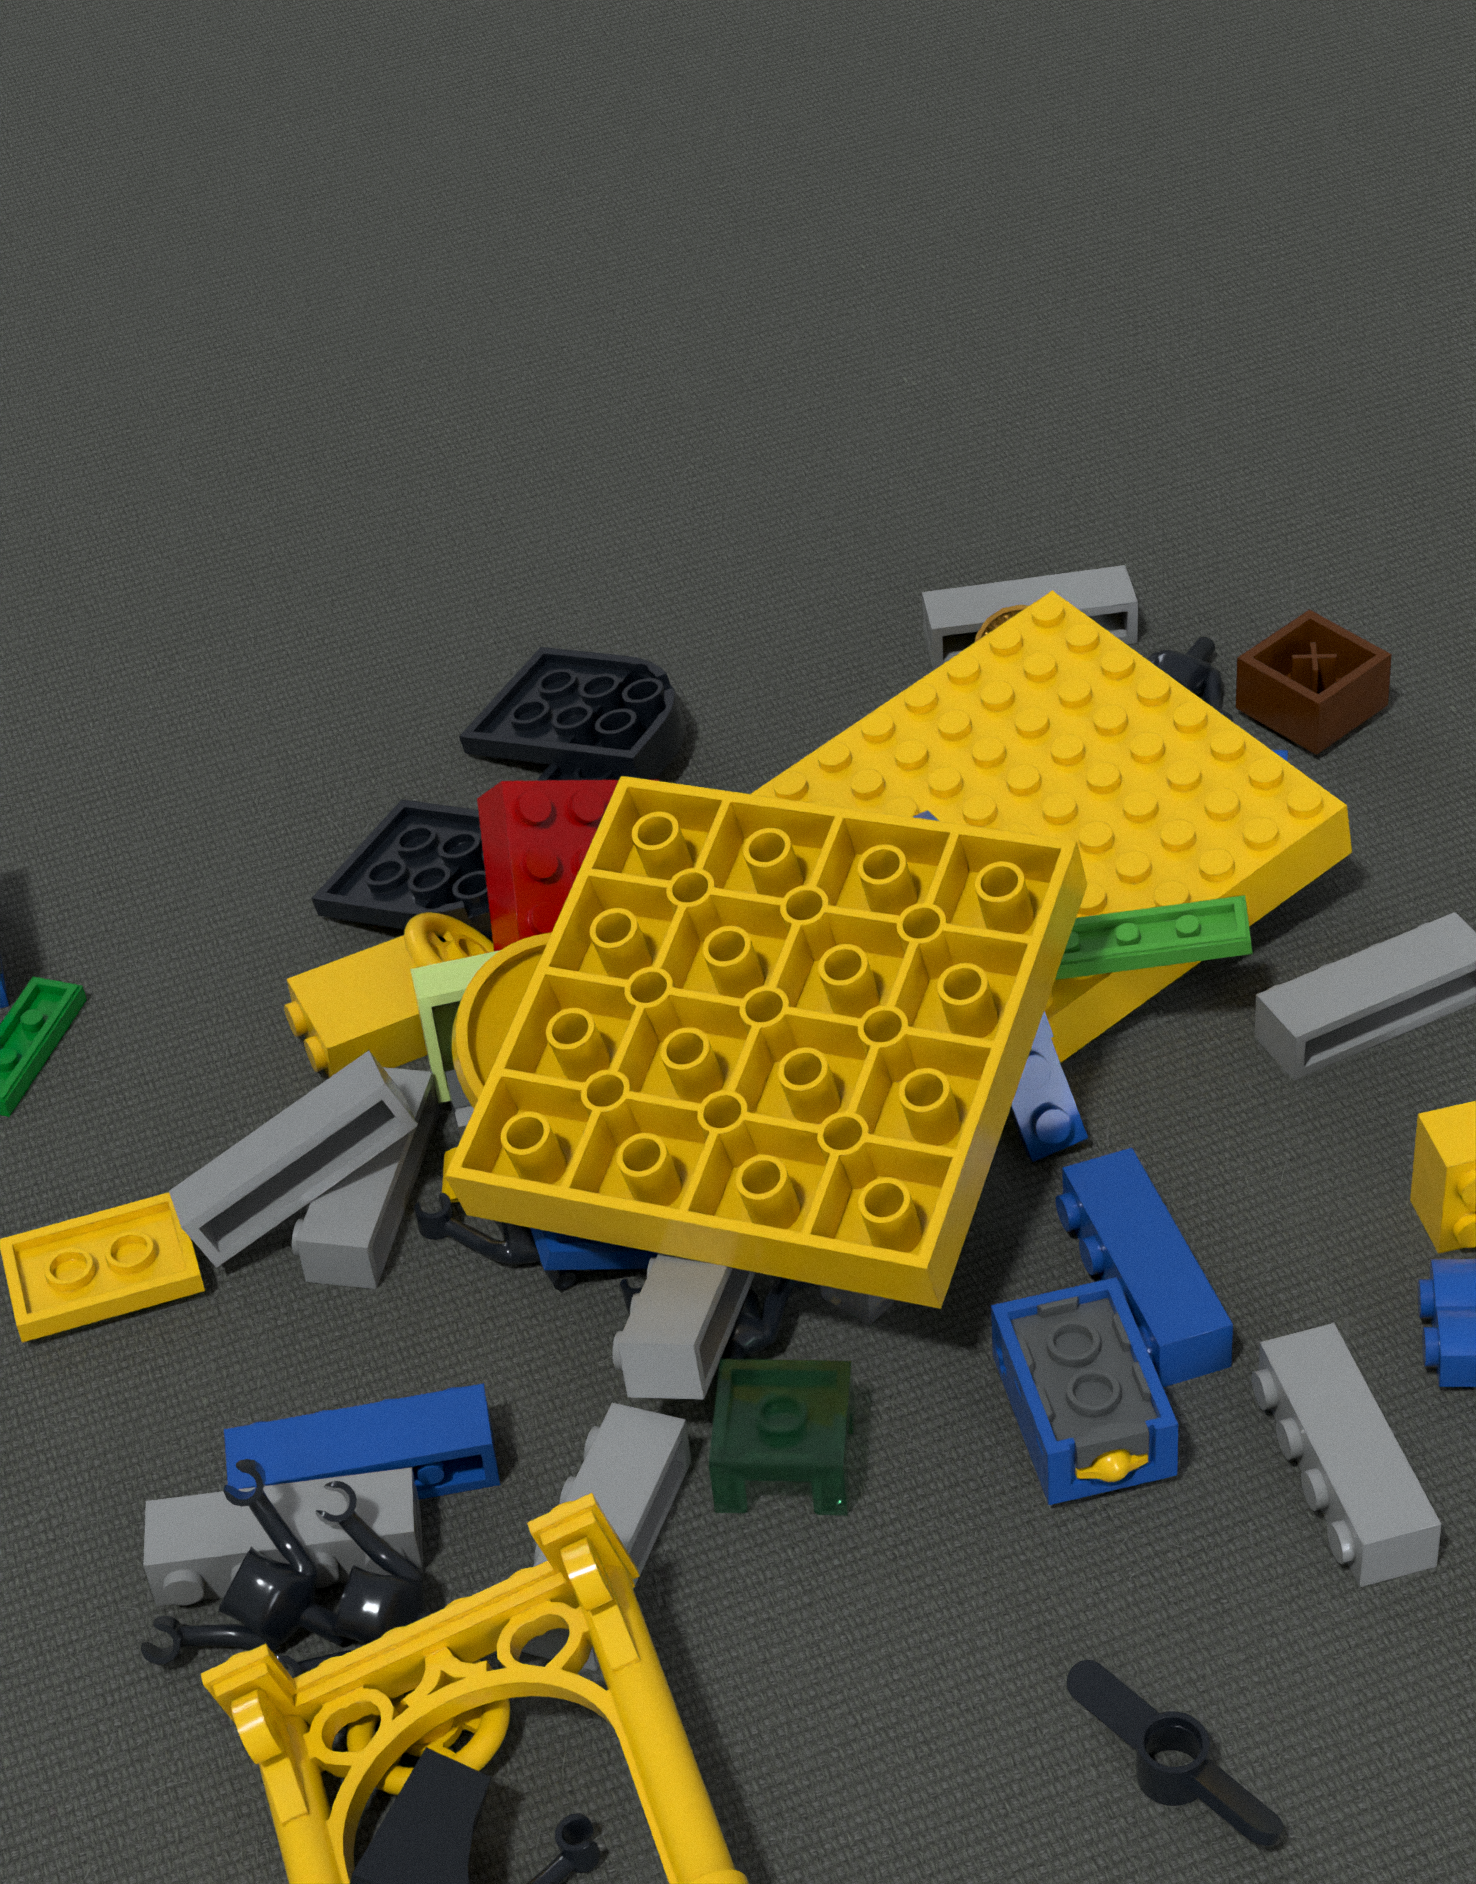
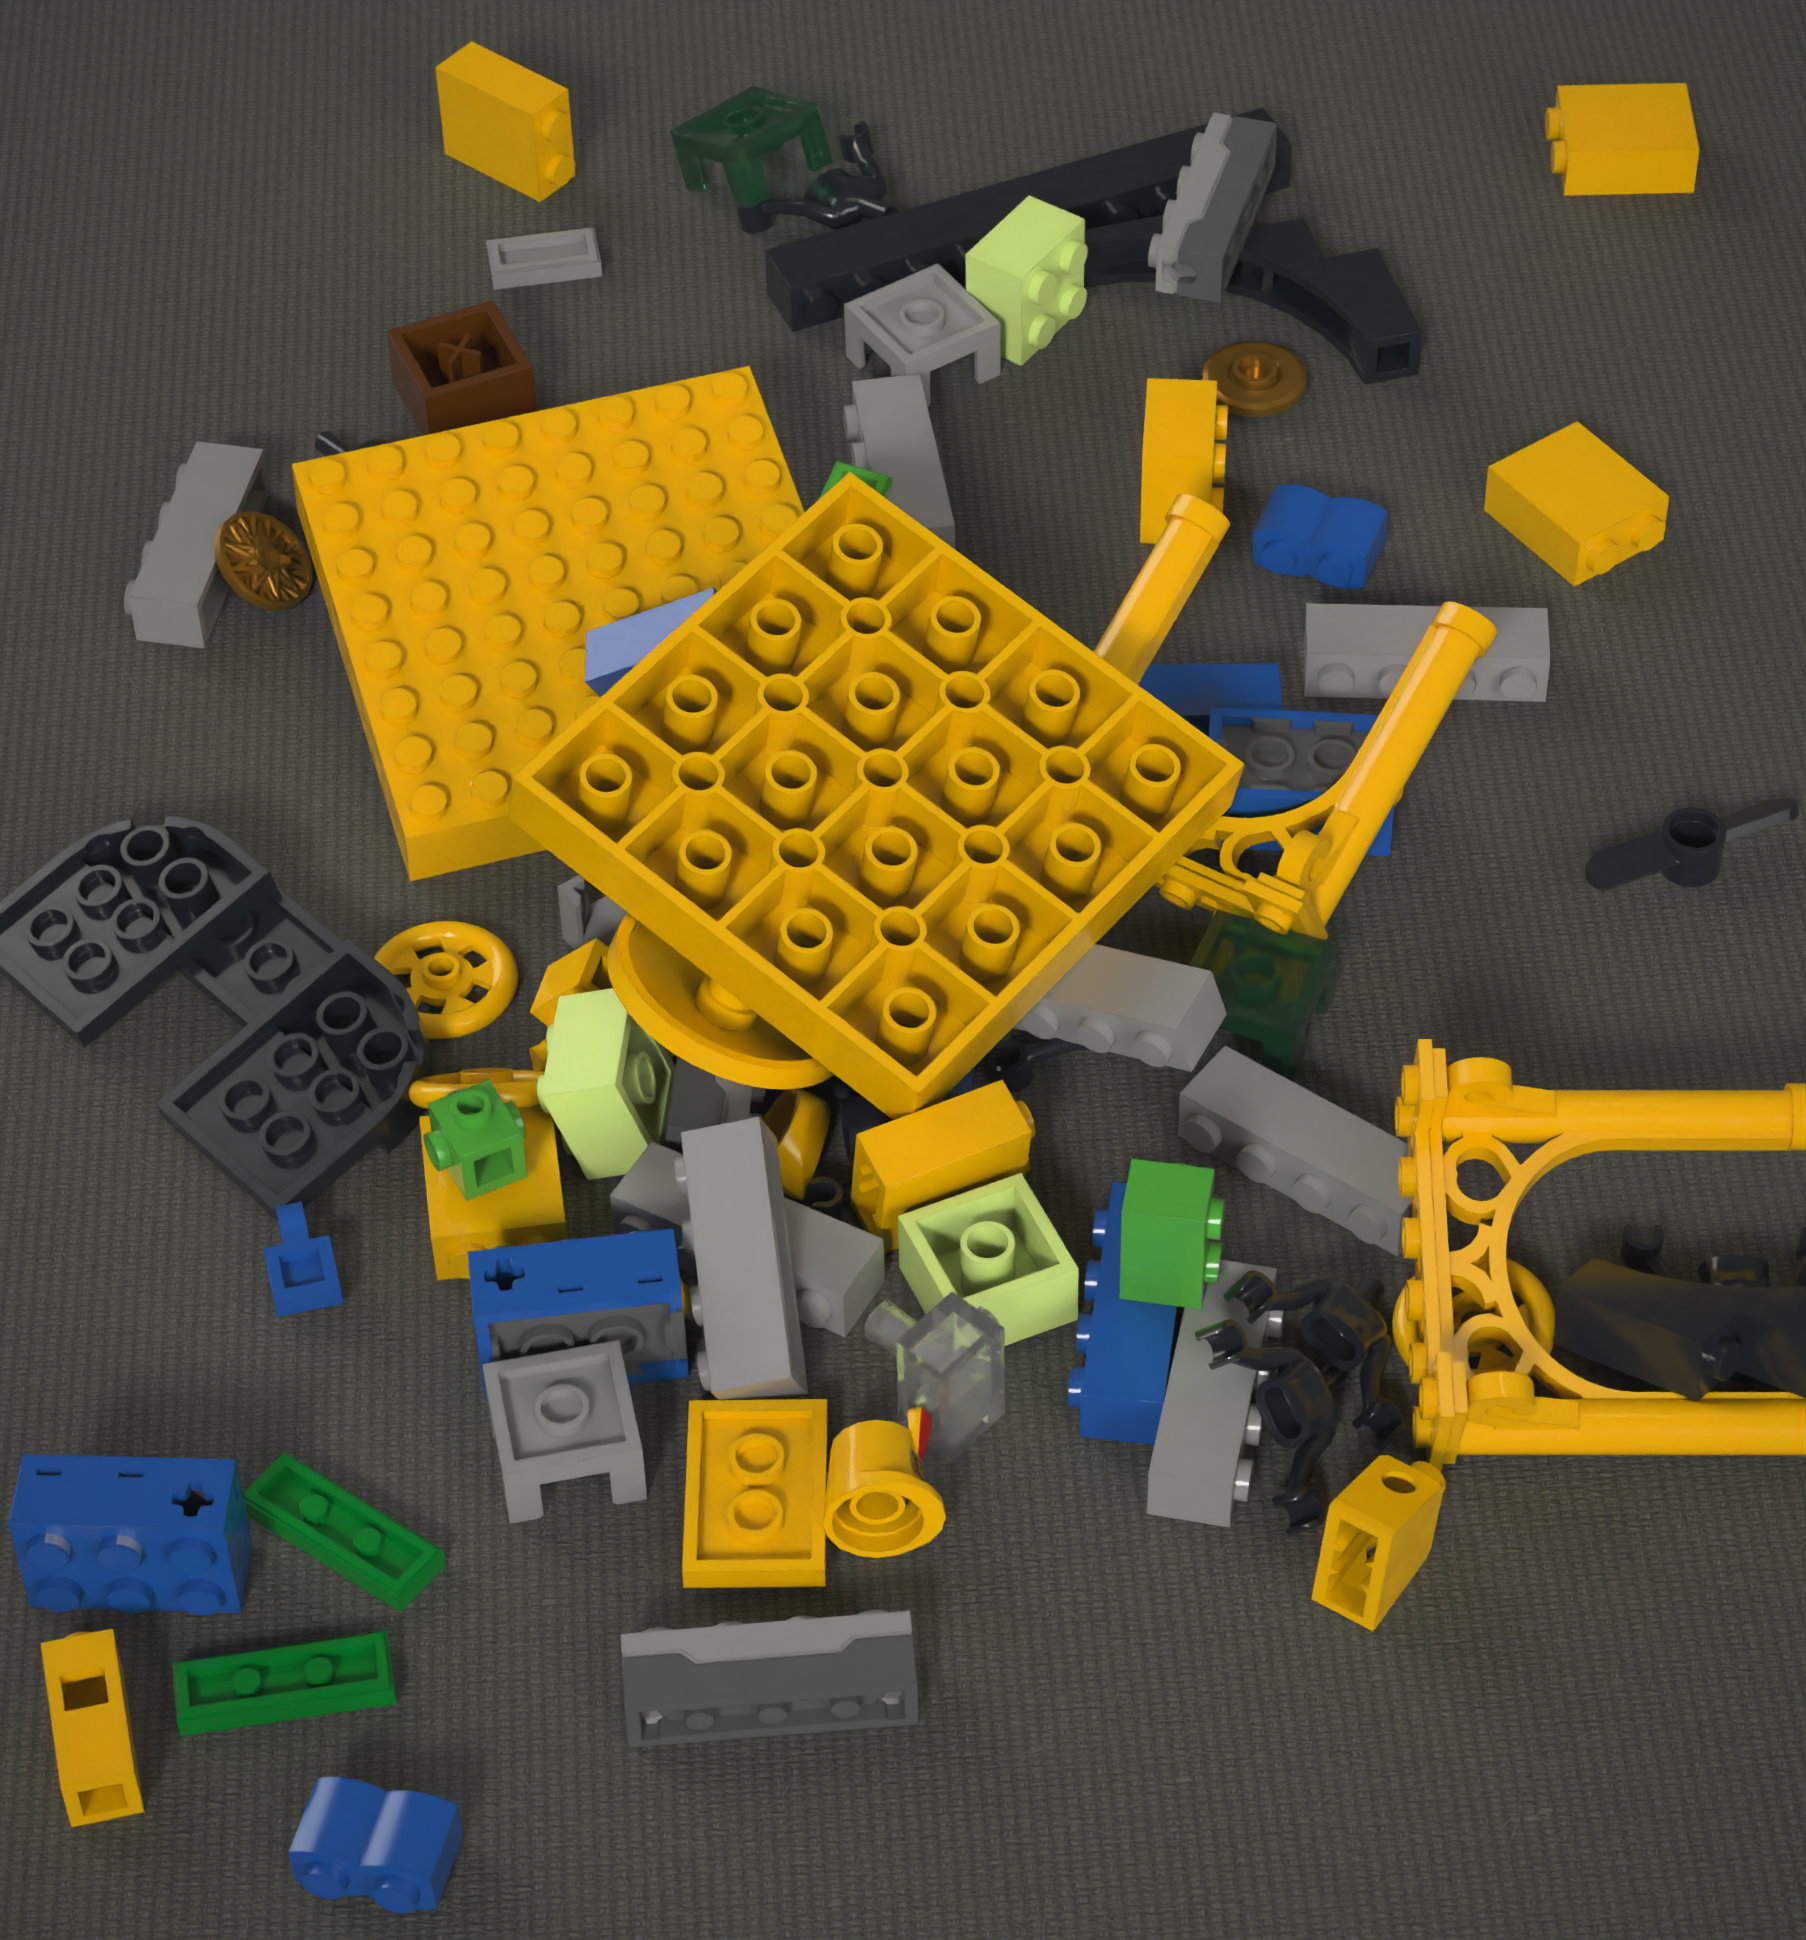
camera: 75 degrees left, 5 degrees up
(112, 1332) = (880, 1490): none -> yellow hat
(123, 1115) = (563, 1421): none -> light grey panel
(123, 1697) = (1386, 1508): none -> yellow torso
(222, 1064) = (584, 1295): none -> blue piece
(225, 1330) = (949, 1365): none -> clear brick
(269, 933) = (302, 1268): none -> blue plate
(361, 954) = (477, 1139): none -> bright green brick
(366, 1329) = (993, 1253): none -> yellowish green brick
(369, 1409) = (1169, 1234): none -> bright green brick
(458, 1259) = (938, 1156): none -> yellow brick
(534, 849) = (426, 953): red brick -> none
(889, 1404) = (1313, 866): none -> yellow arch

